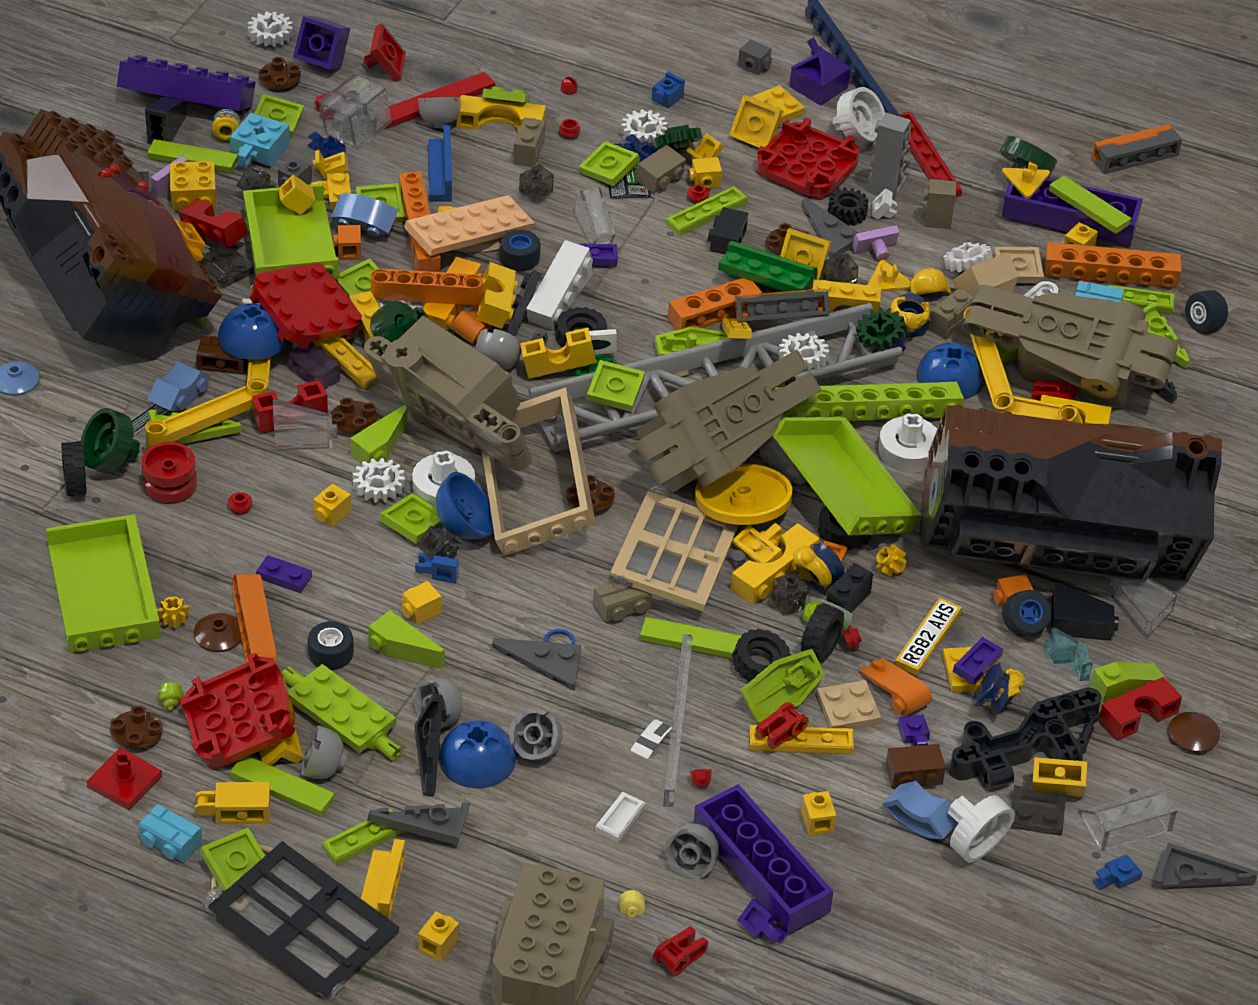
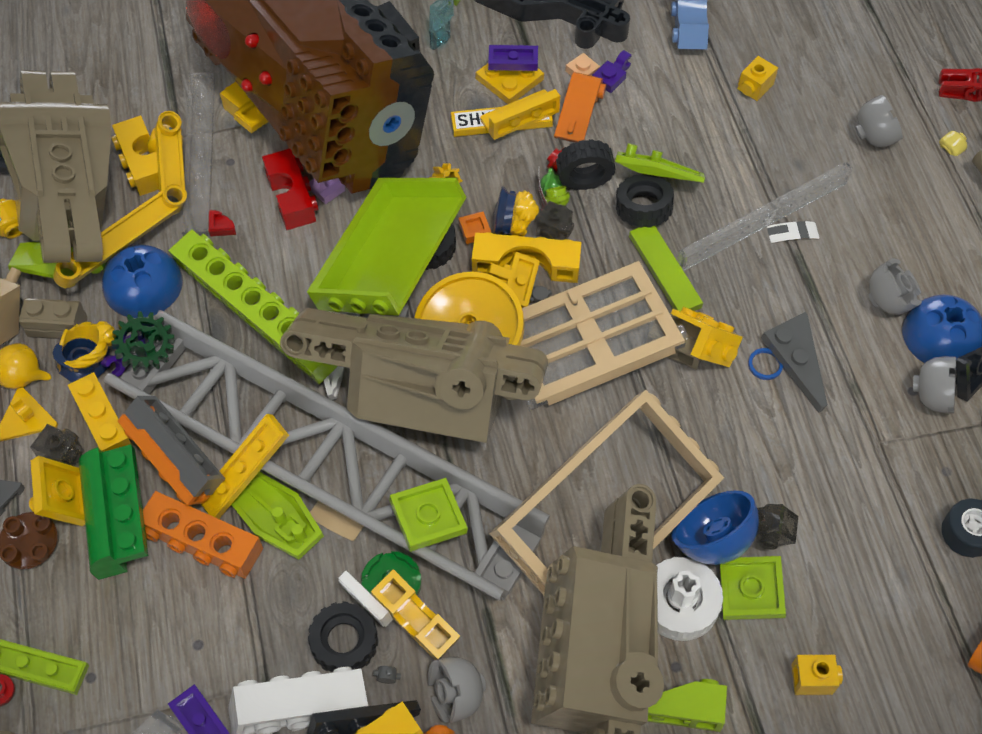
camera: 125 degrees left, 15 degrees up
(284, 574) = (932, 651): dark purple plate -> none
(378, 480) = (752, 659): white gear -> none
(404, 642) = (905, 475): lime slope -> none
(421, 603) = (848, 492): yellow brick -> none
(440, 567) = (790, 500): blue plate -> none
(601, 494) = (564, 447): reddish brown dish -> none
(609, 602) = (716, 339): none -> yellow bracket
(620, 817) = (891, 198): white tile -> none
(701, 777) = (797, 173): red hinge -> none
(728, 227) = (56, 605): black brick -> none
(759, 921) = (887, 58): dark purple plate -> none
(764, 859) = (840, 80): dark purple brick -> none
(782, 725) = (707, 140): red piece -> none
(809, 741) = (693, 136): yellow tile -> none
(813, 351) = (235, 382): white gear -> none
(848, 705) = (627, 124): tan plate -> none
(851, 588) = (512, 180): black brick -> none
(915, 440) = (273, 240): white piece -> none
(917, 764) = (651, 49): reddish brown brick -> none
(919, 639) = (521, 113): none -> yellow panel
(938, 718) = (583, 65): none -> light nougat plate
(998, 687) = (531, 29): dark blue piece -> none
(1035, 612) = (435, 55): black wheel -> none
(1053, 389) = (118, 180): red piece -> none

